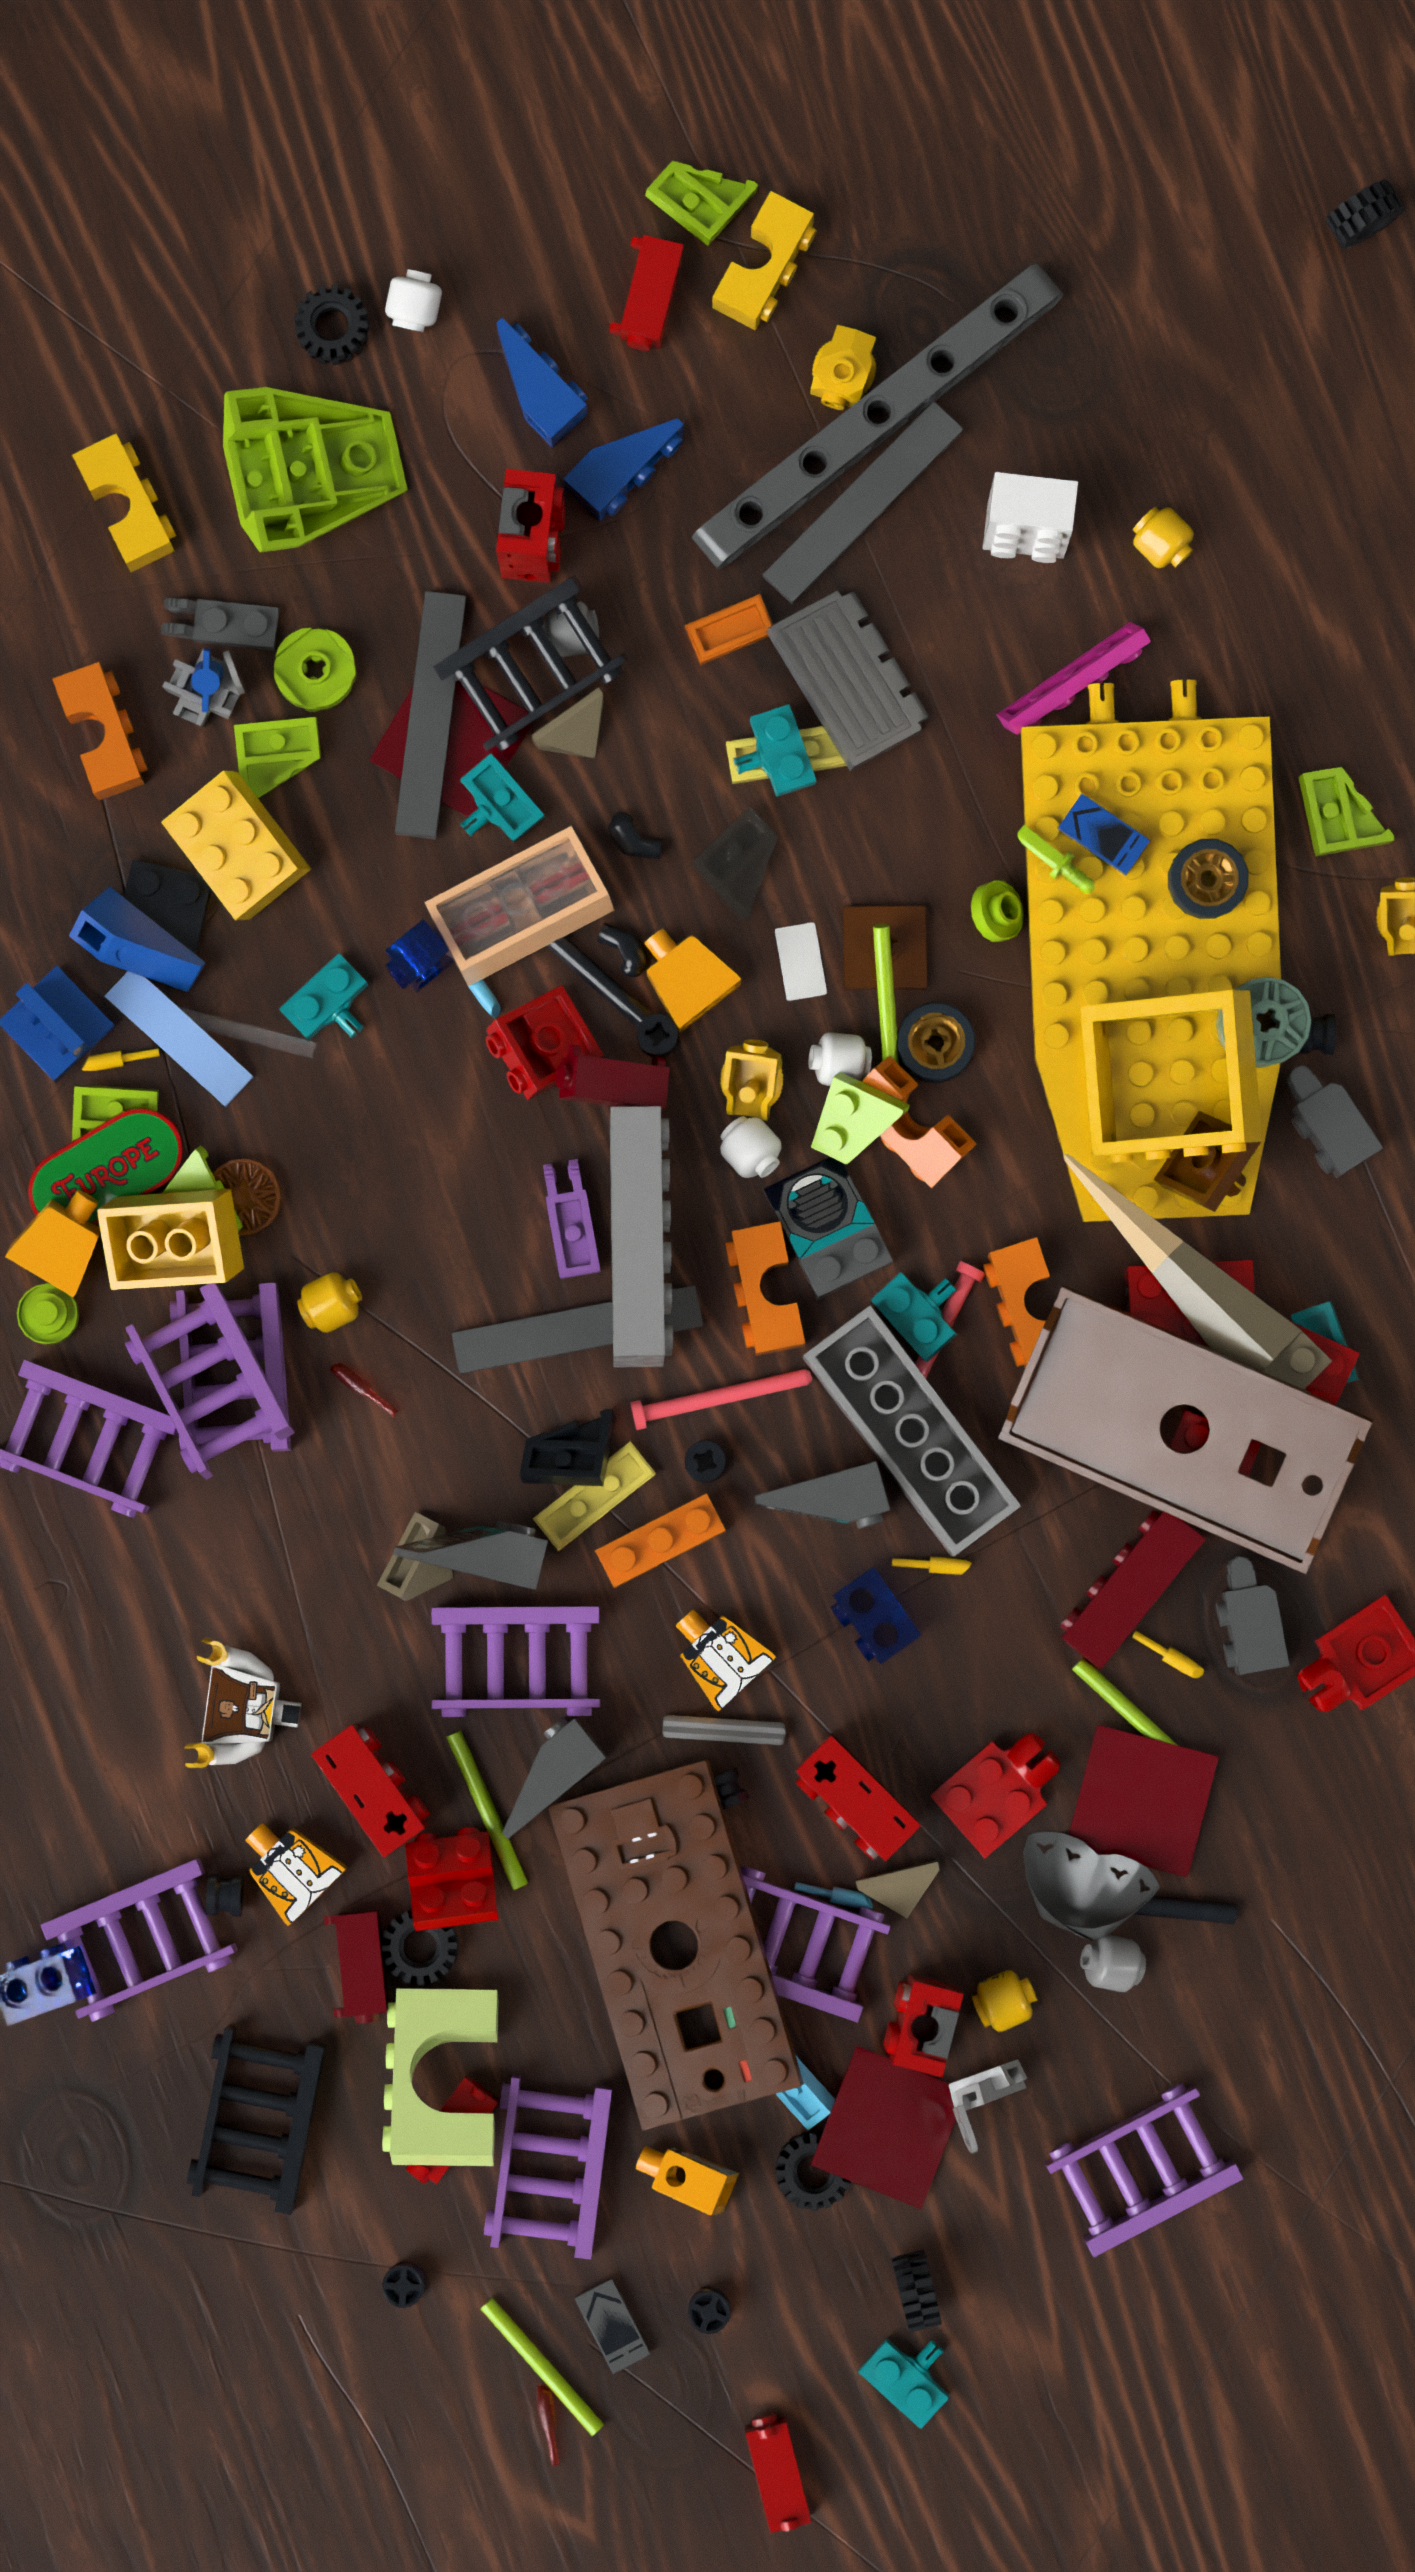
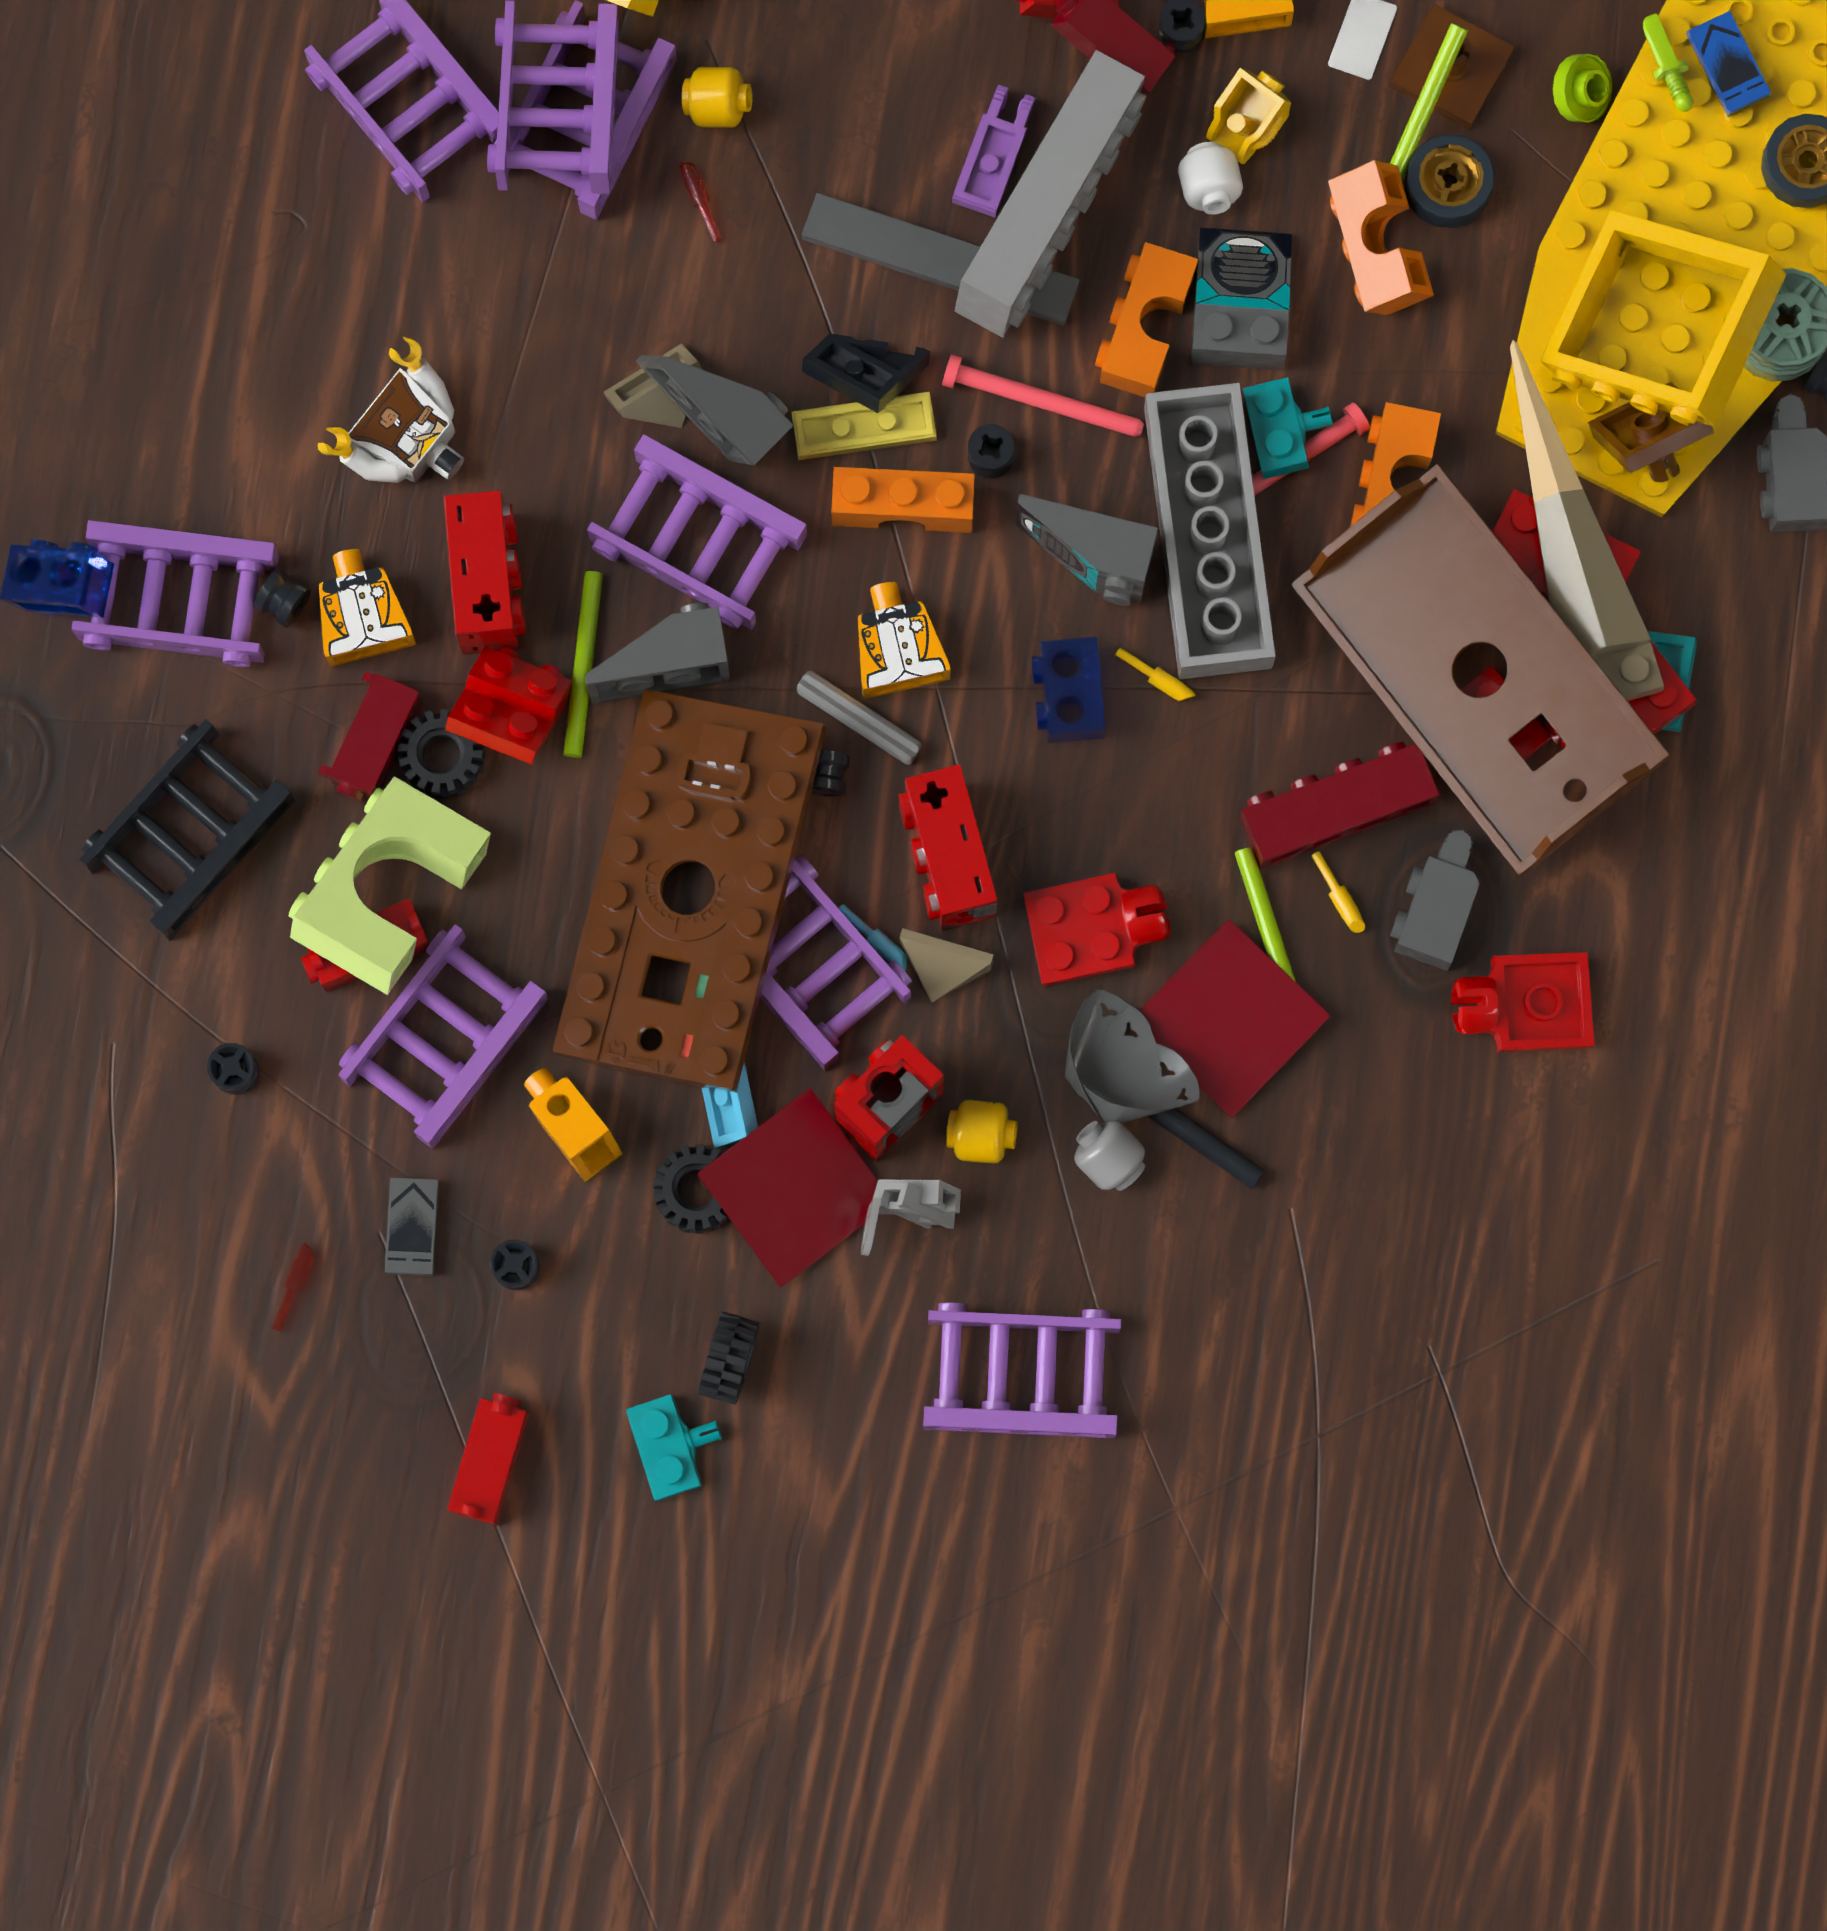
camera: 30 degrees right, 5 degrees down
(542, 2366) = (320, 1227): lime bar -> none
(840, 1054) = (1345, 142): white head -> none
(854, 1118) = (1327, 202): wing -> none

